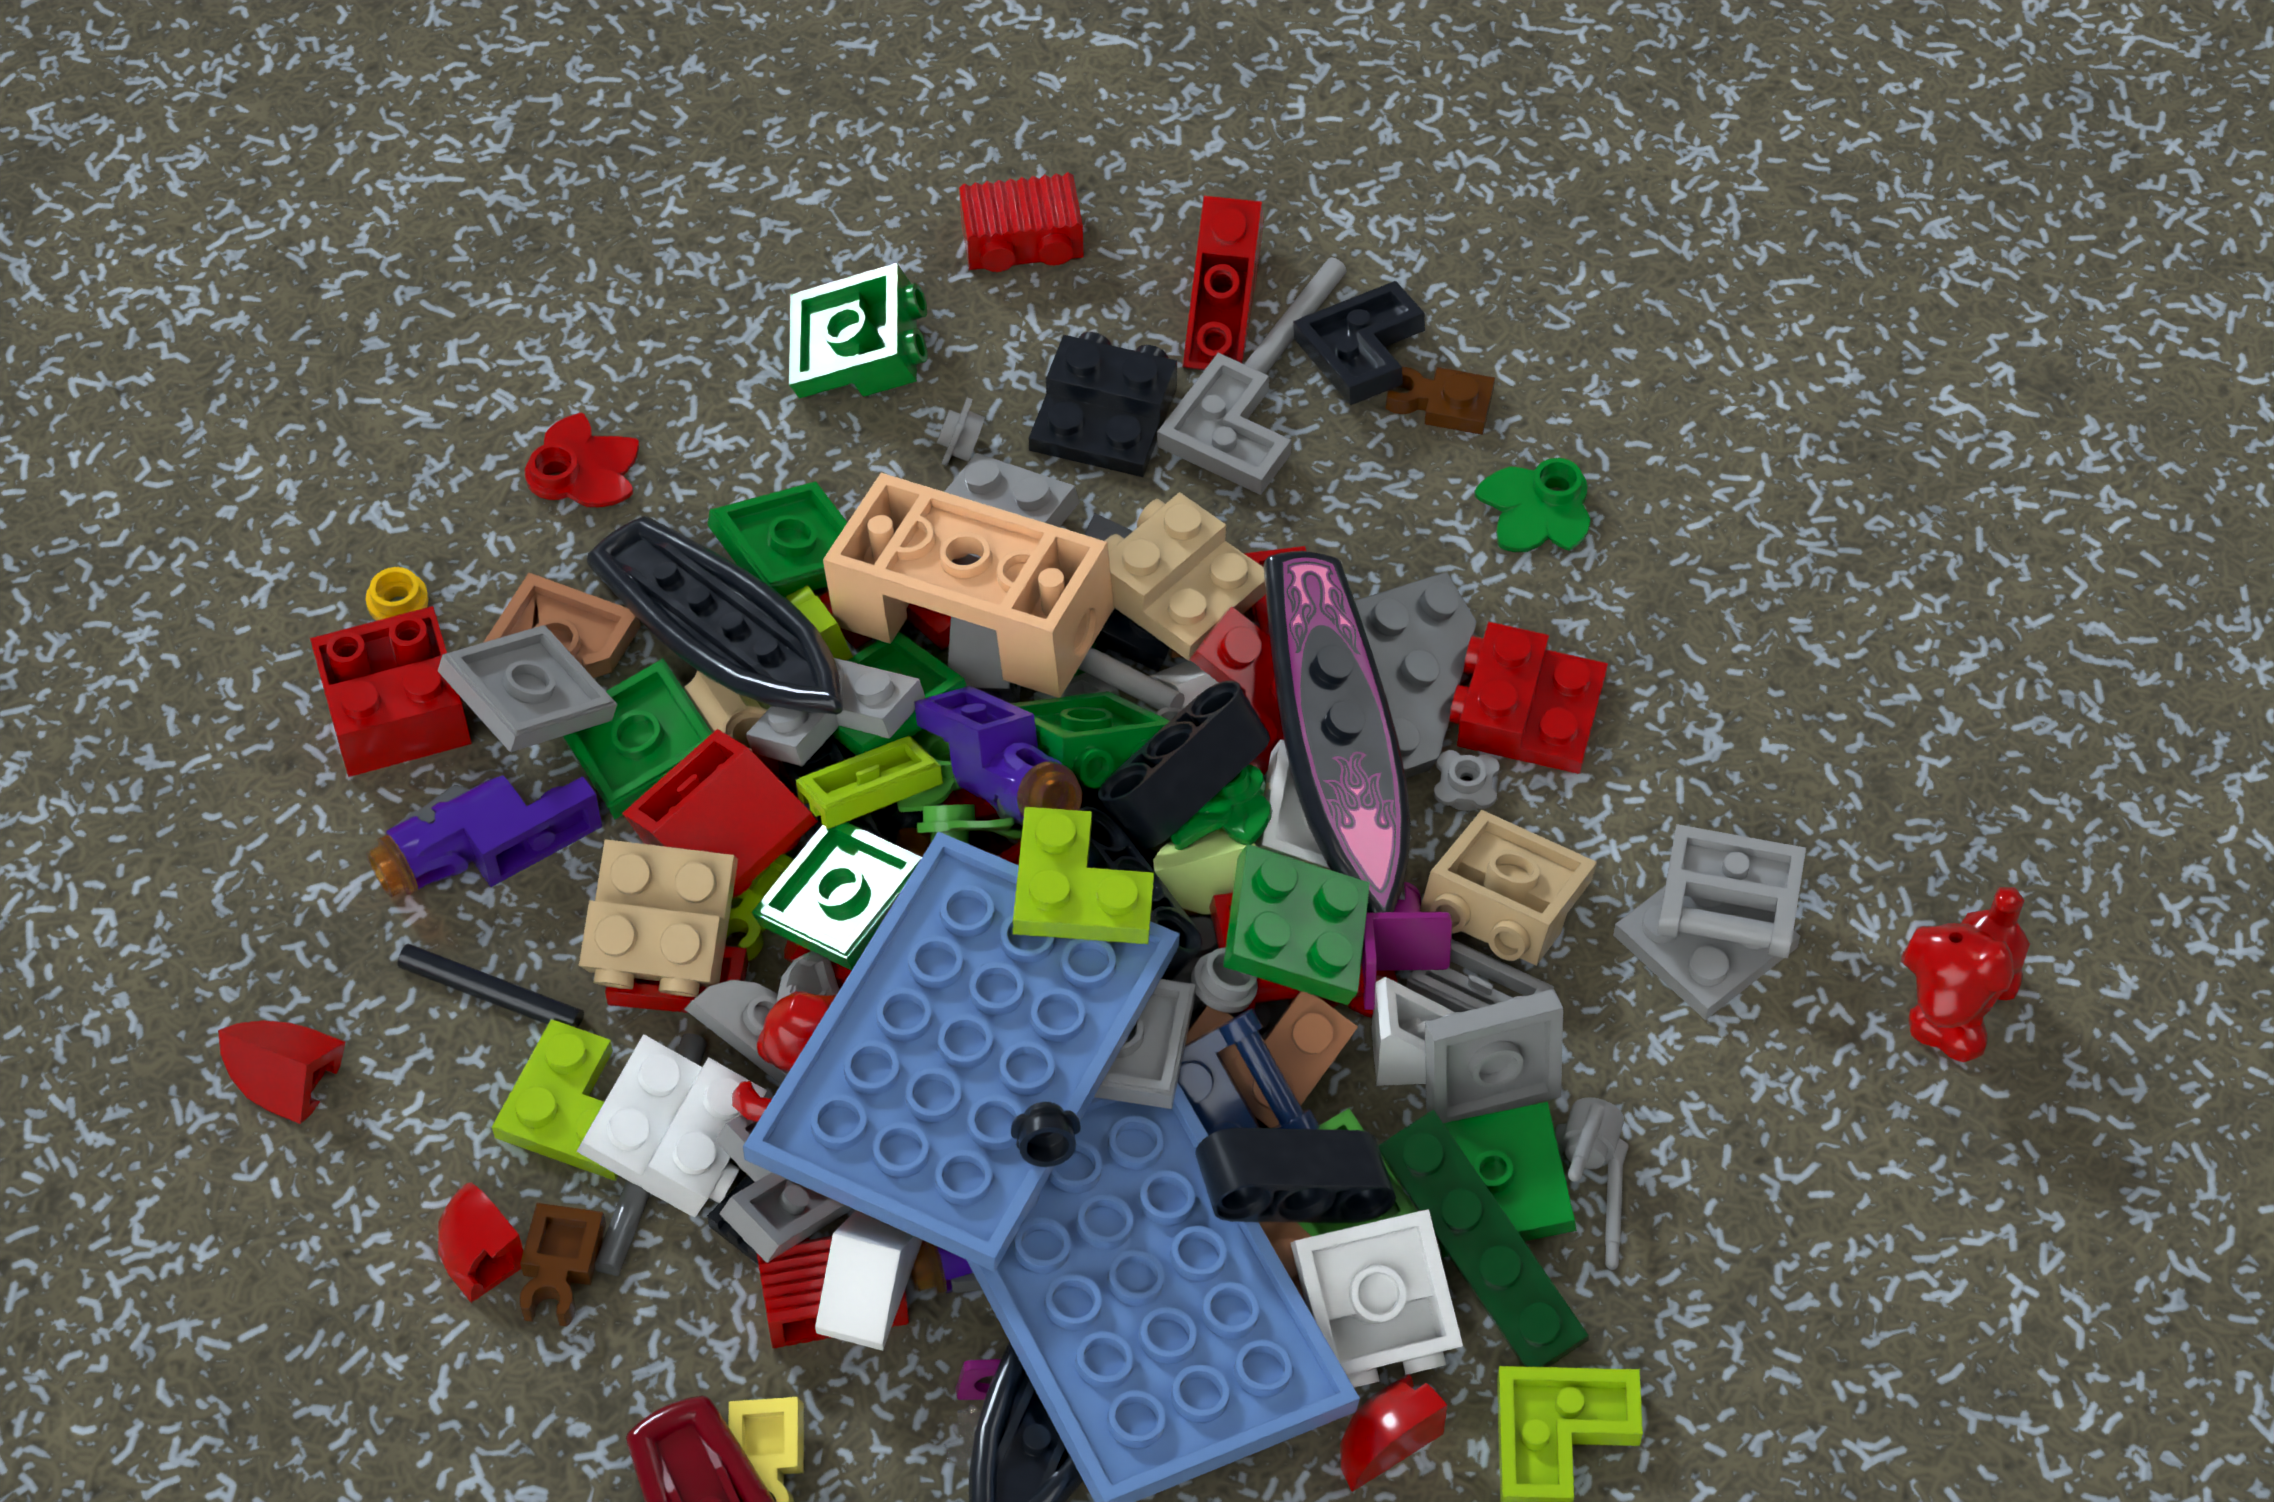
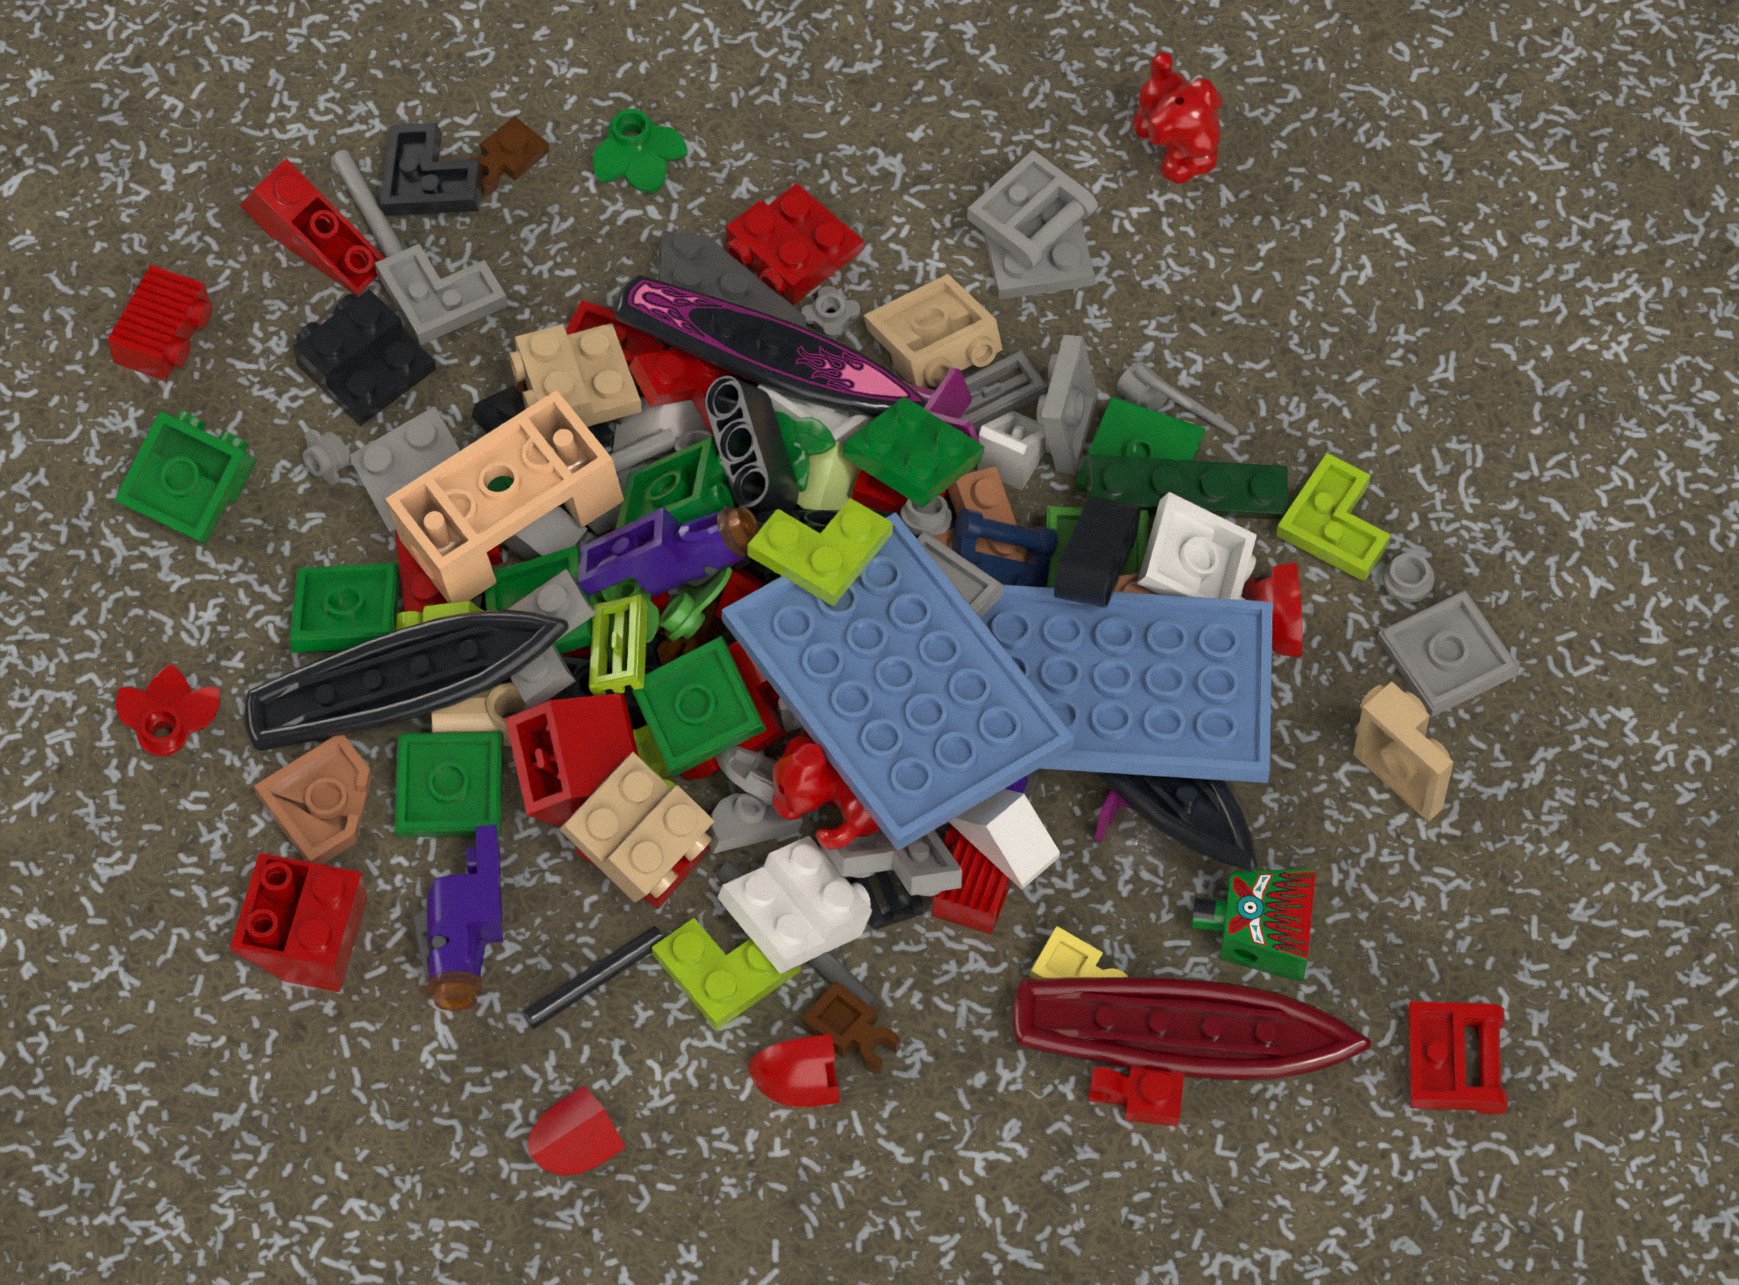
camera: 60 degrees left, 5 degrees up
(395, 583) = (200, 873): yellow plate -> none
(527, 688) = (377, 824): light grey tile -> none
(1046, 1134) = (1010, 657): black plate -> none

